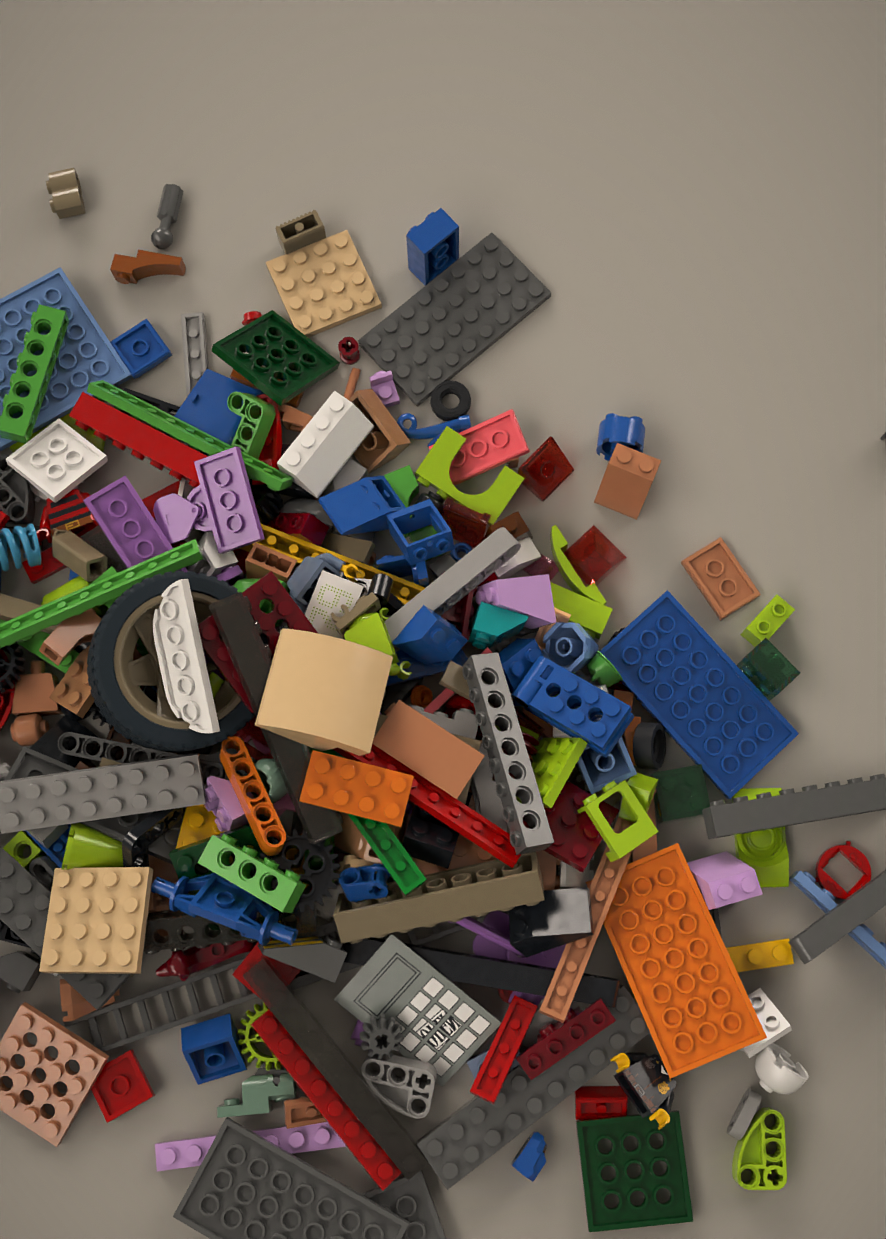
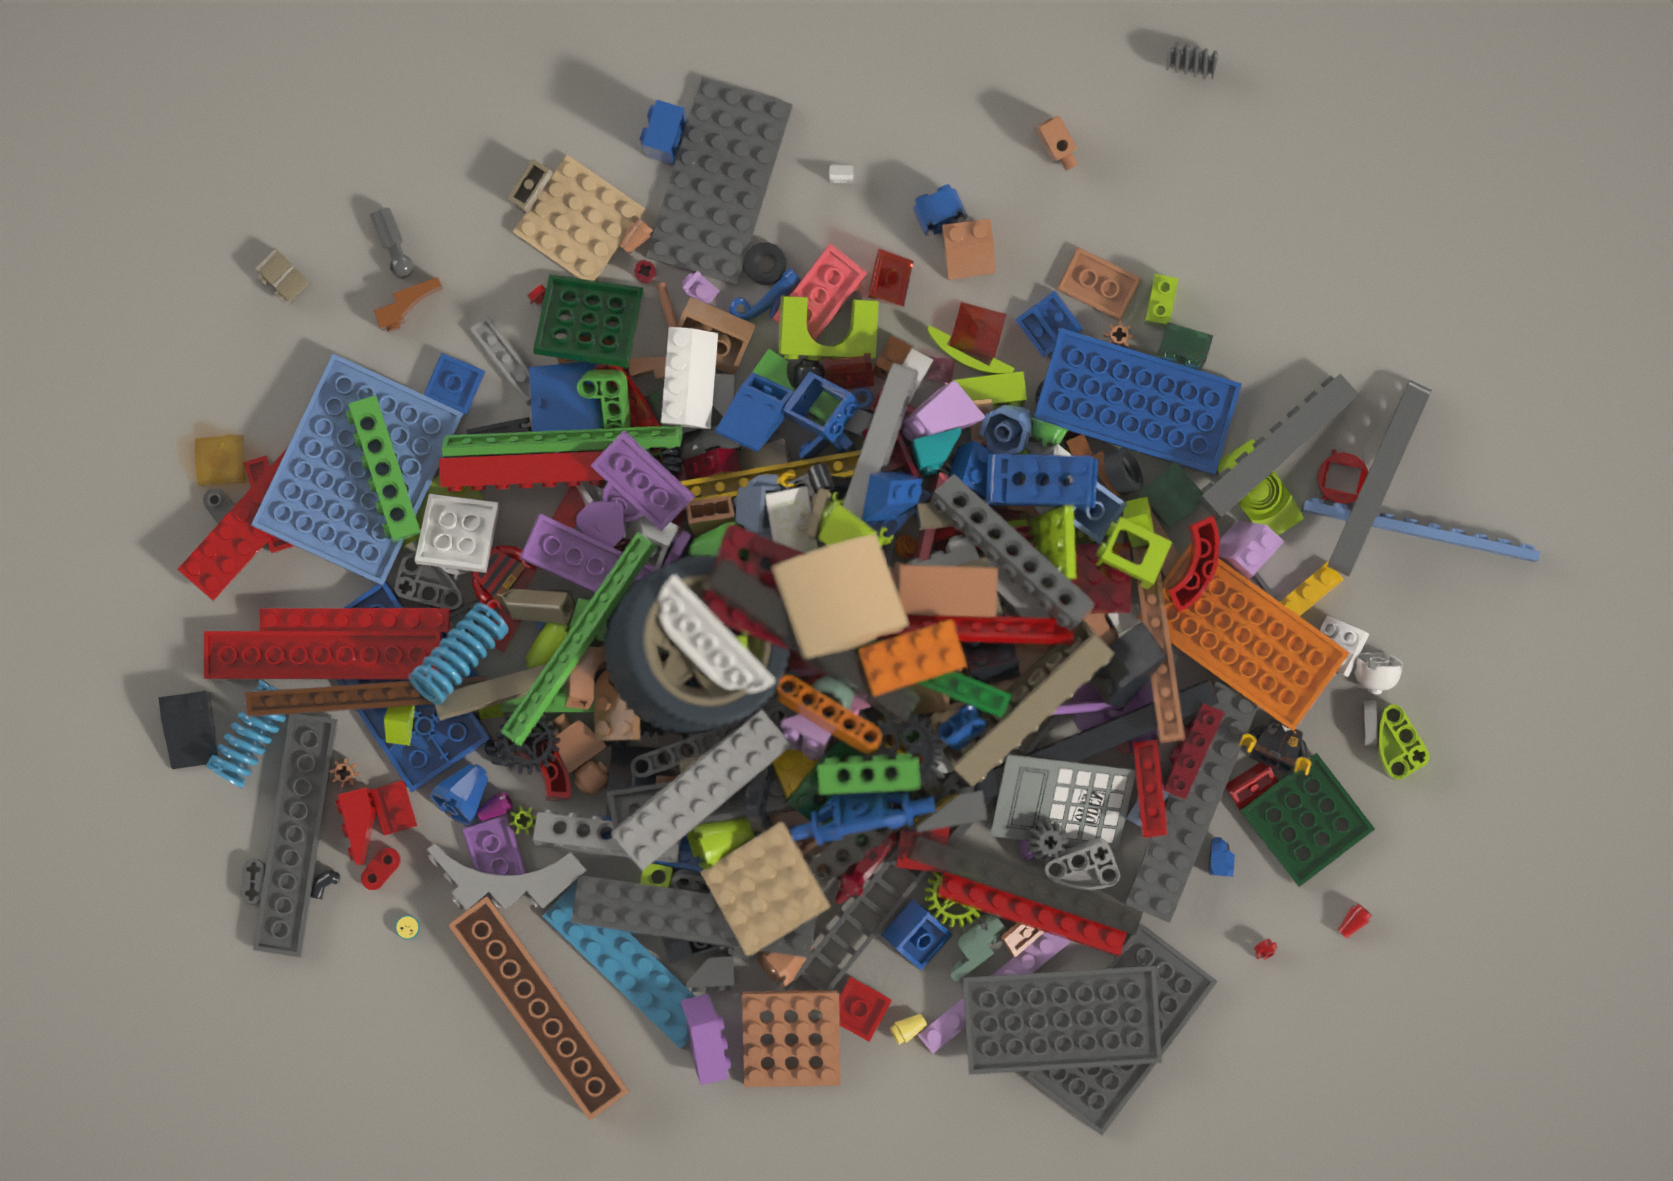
camera: 30 degrees left, 10 degrees up
(150, 1132) = (907, 1028): none -> light yellow cone
(361, 319) = (636, 235): none -> nougat cone
(556, 369) = (841, 173): none -> white slope
(654, 579) = (1044, 321): none -> blue slope
(672, 870) = (1201, 565): none -> red brick
(717, 623) = (1124, 331): none -> nougat gear
(754, 431) = (1049, 134): none -> nougat torso

